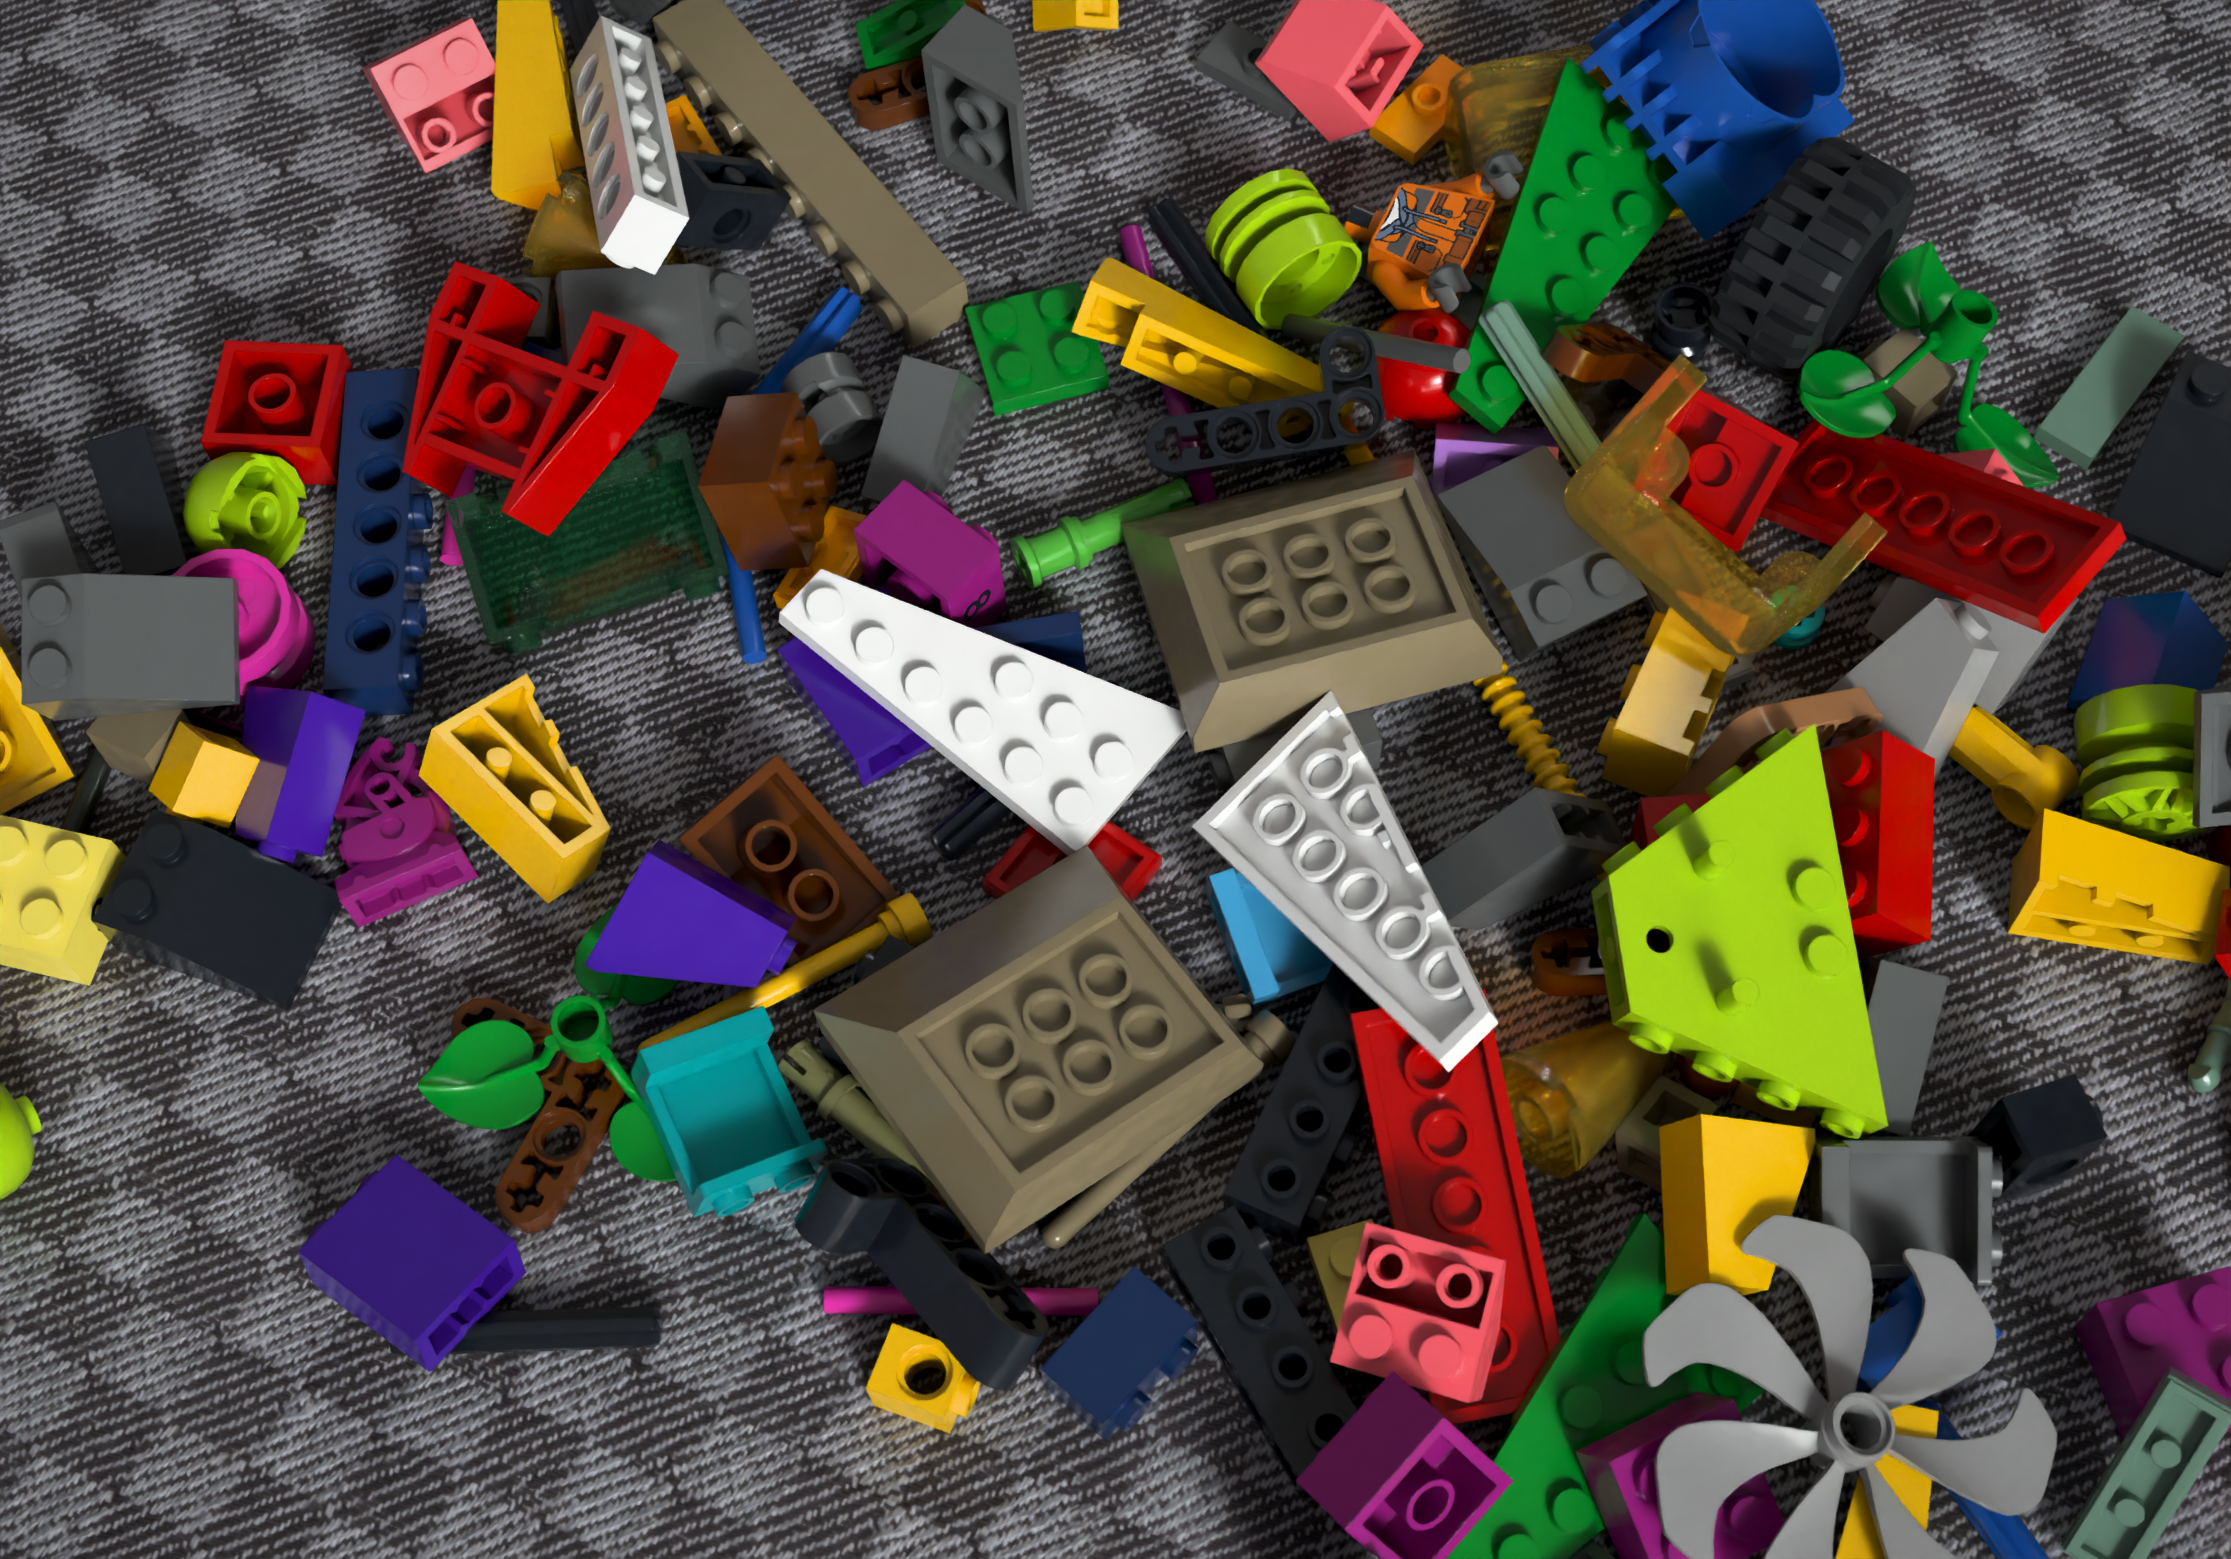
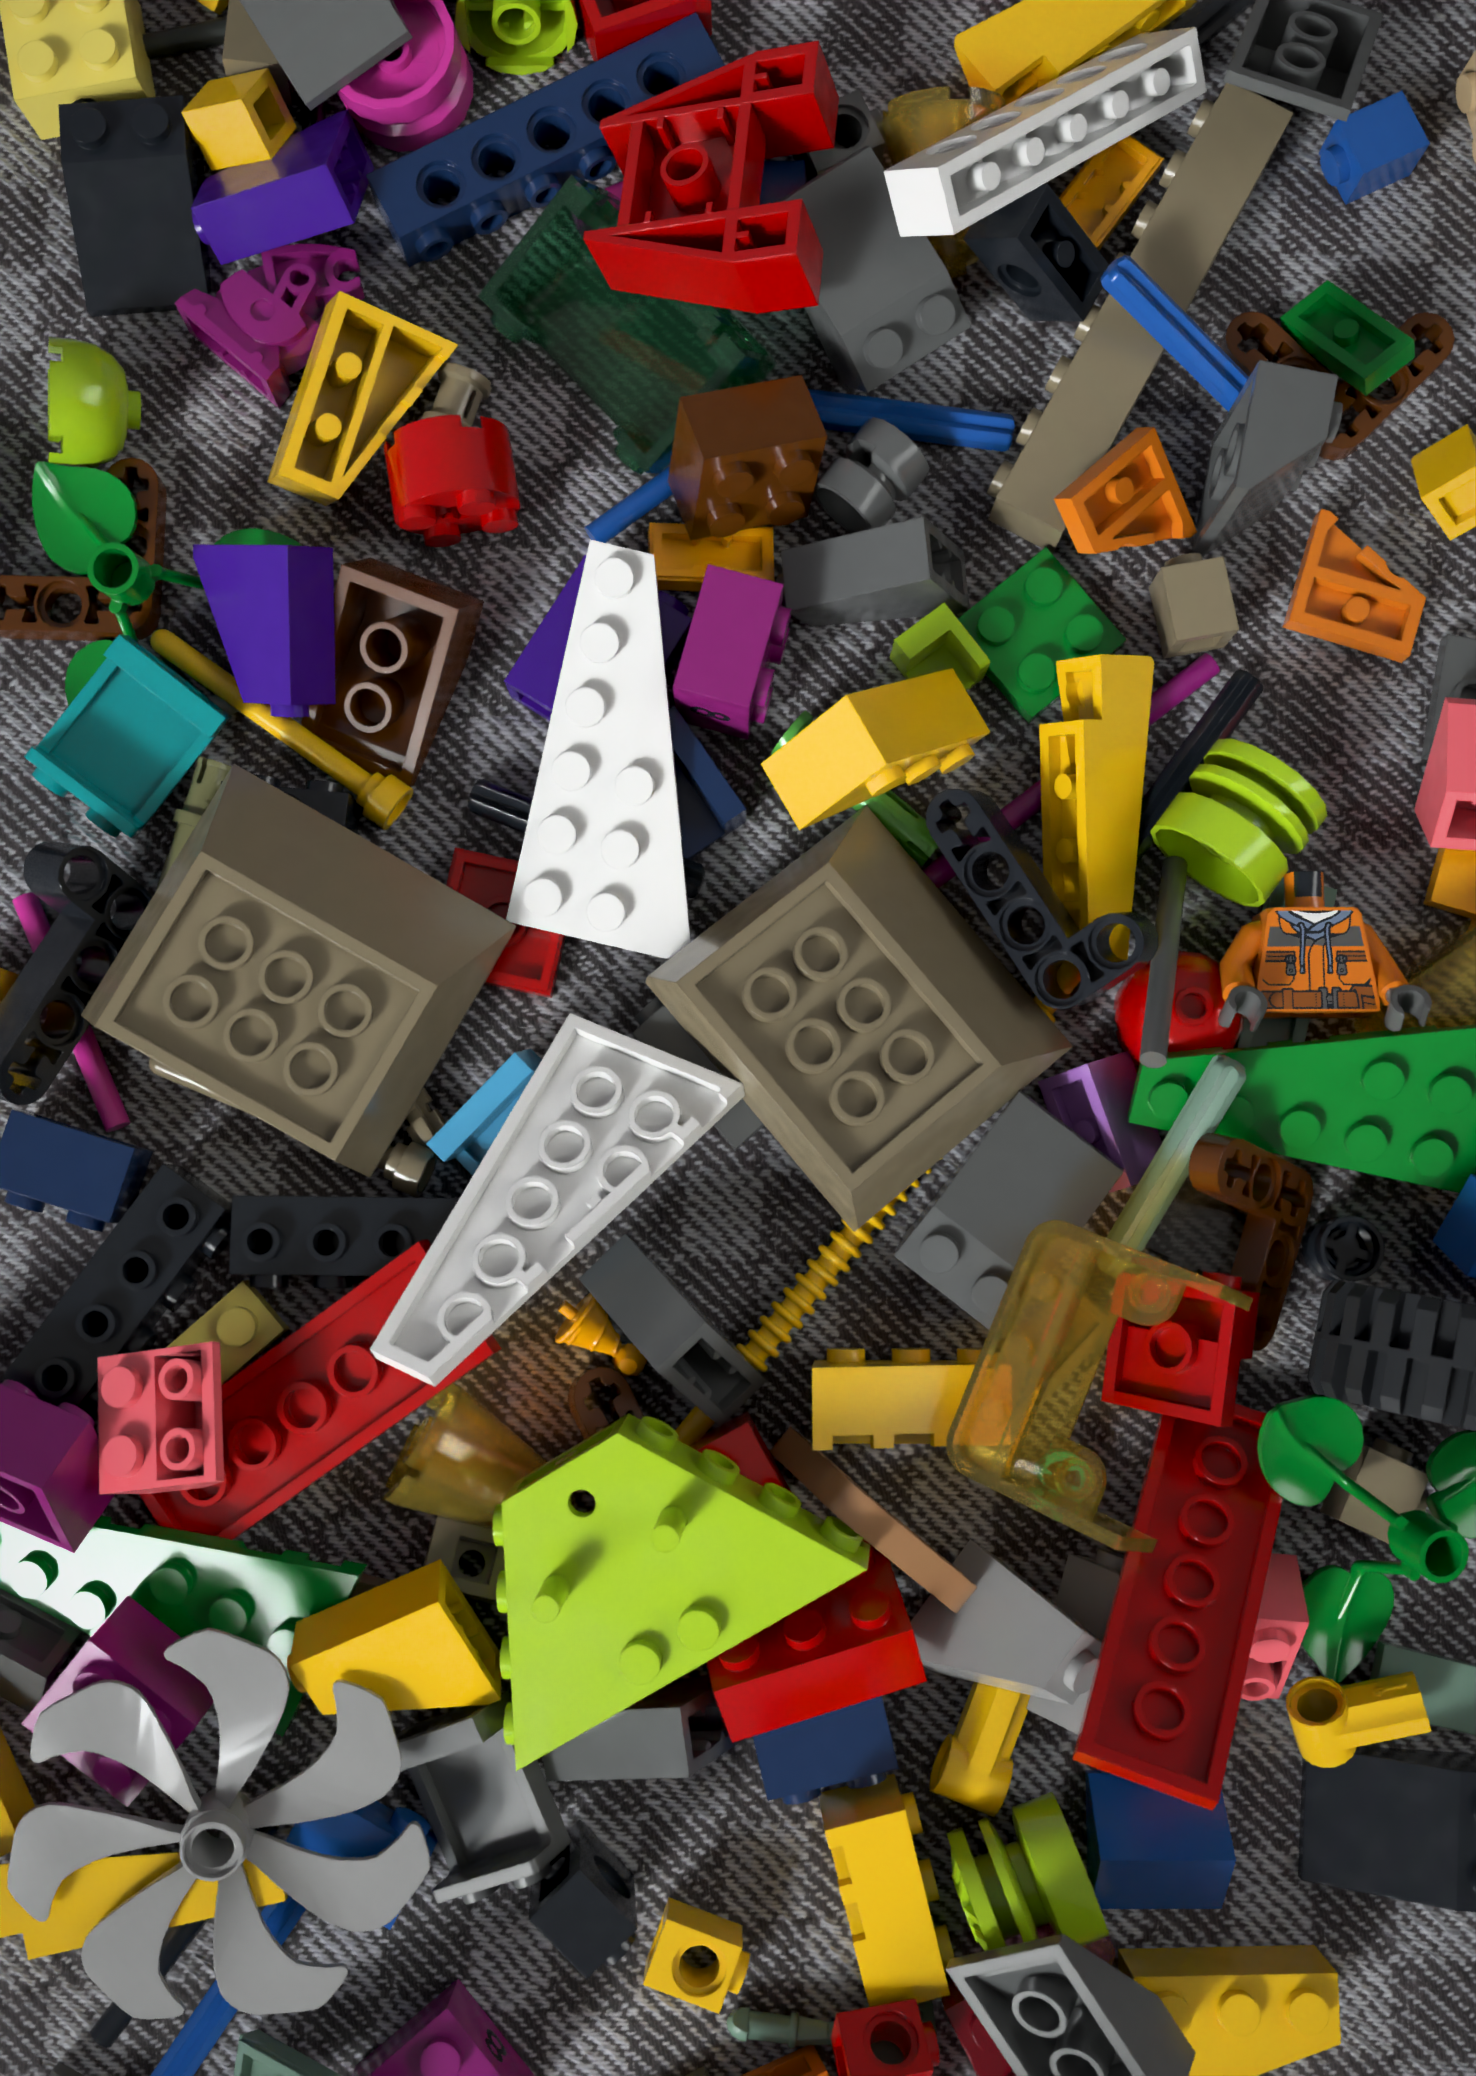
camera: 60 degrees right, 20 degrees up
(380, 1031) = (88, 404): none -> lime cylinder
(573, 714) = (459, 393): none -> dark tan bush
(646, 730) = (452, 479): none -> red brick
(848, 128) = (1174, 329): none -> blue axle
(961, 222) = (1126, 498): none -> orange wing
(1019, 422) = (937, 645): none -> lime panel
(1077, 216) = (1193, 605): none -> dark tan brick
(1079, 473) = (875, 744): none -> yellow wedge
(1128, 109) = (1352, 596): none -> orange wing
(1491, 942) = (591, 1329): none -> light orange piece
(1966, 890) = (826, 1751): none -> dark blue brick
(2091, 459) = (1337, 1719): none -> yellow piece
(2146, 1063) = (686, 1927): none -> yellow brick

